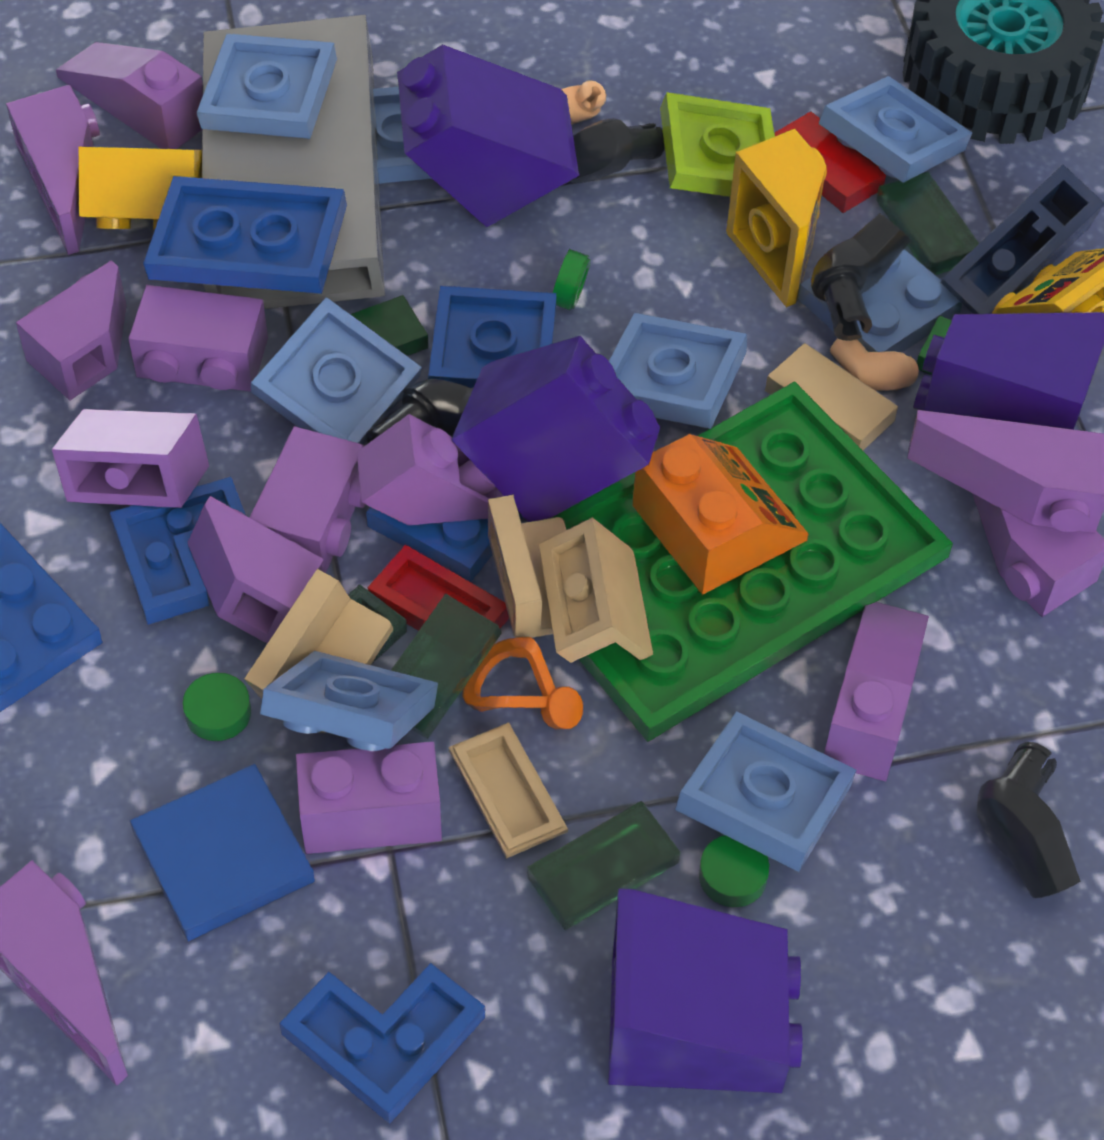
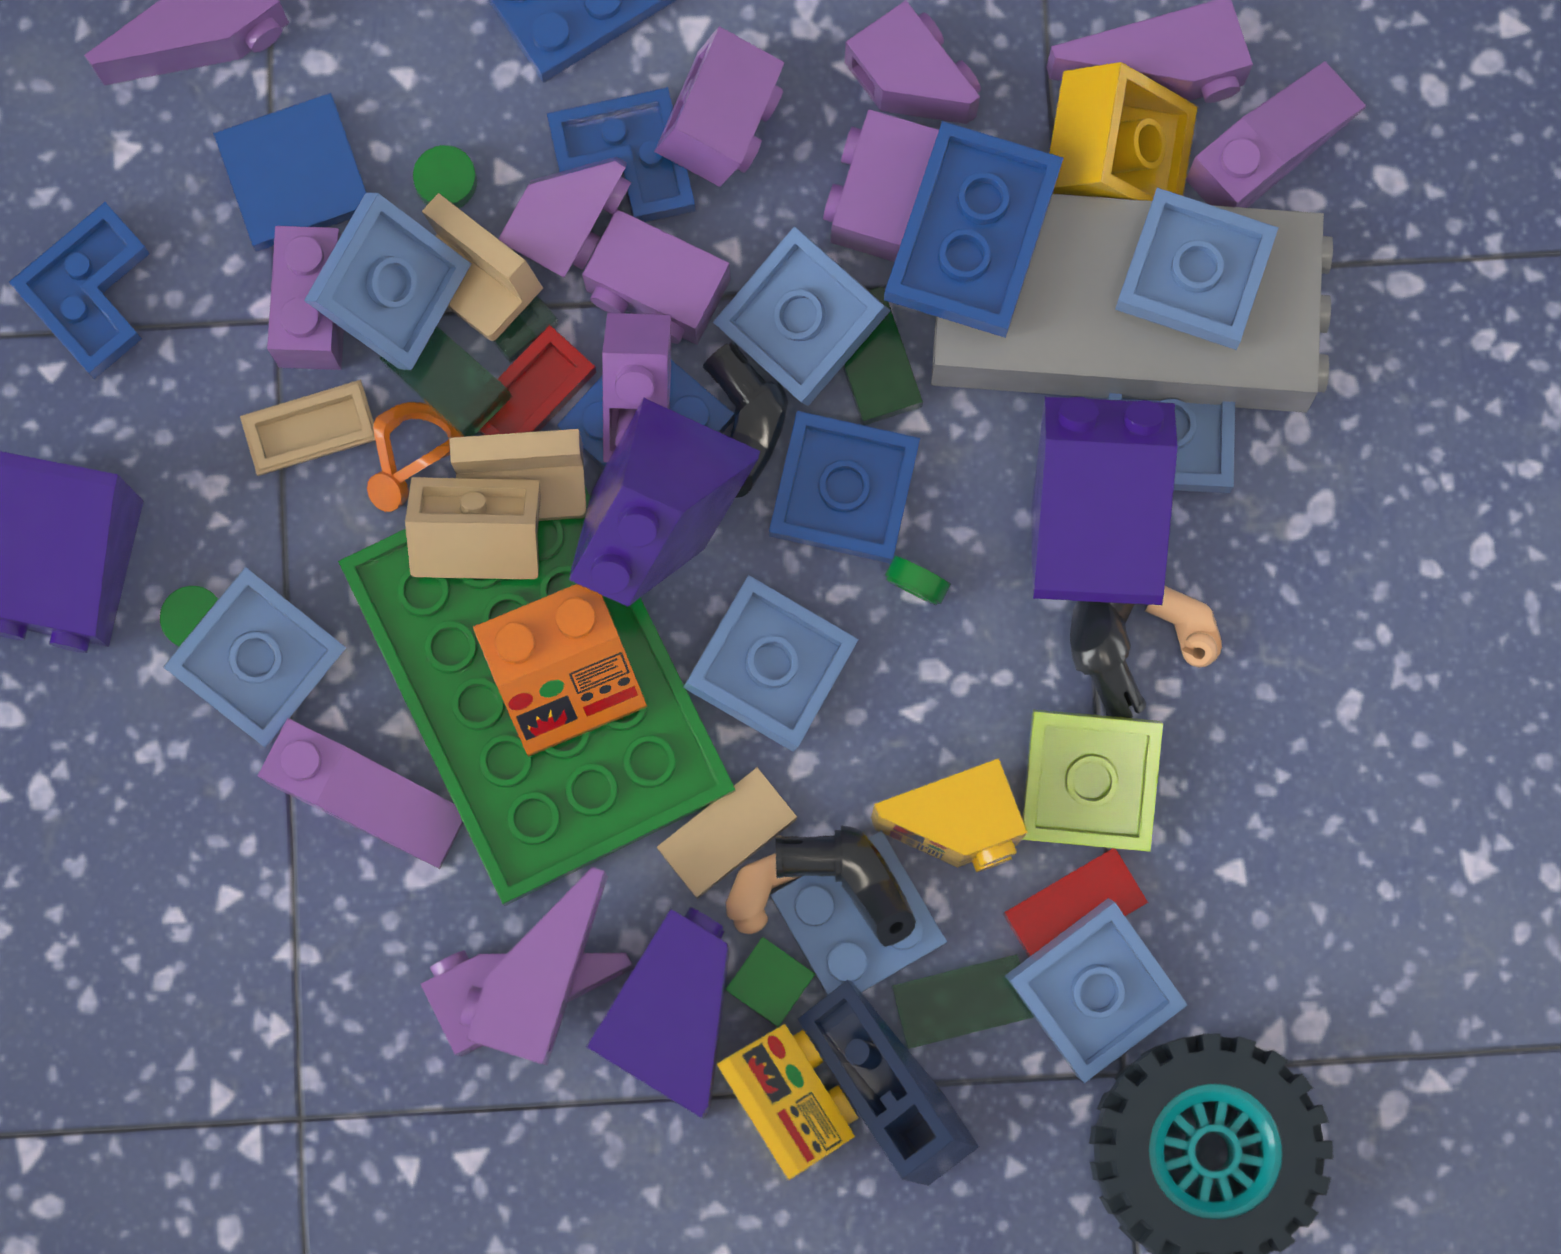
camera: 100 degrees right, 25 degrees up
(608, 858) = (220, 503): clear green tile -> none
(1025, 824) = (182, 882): black arm -> none

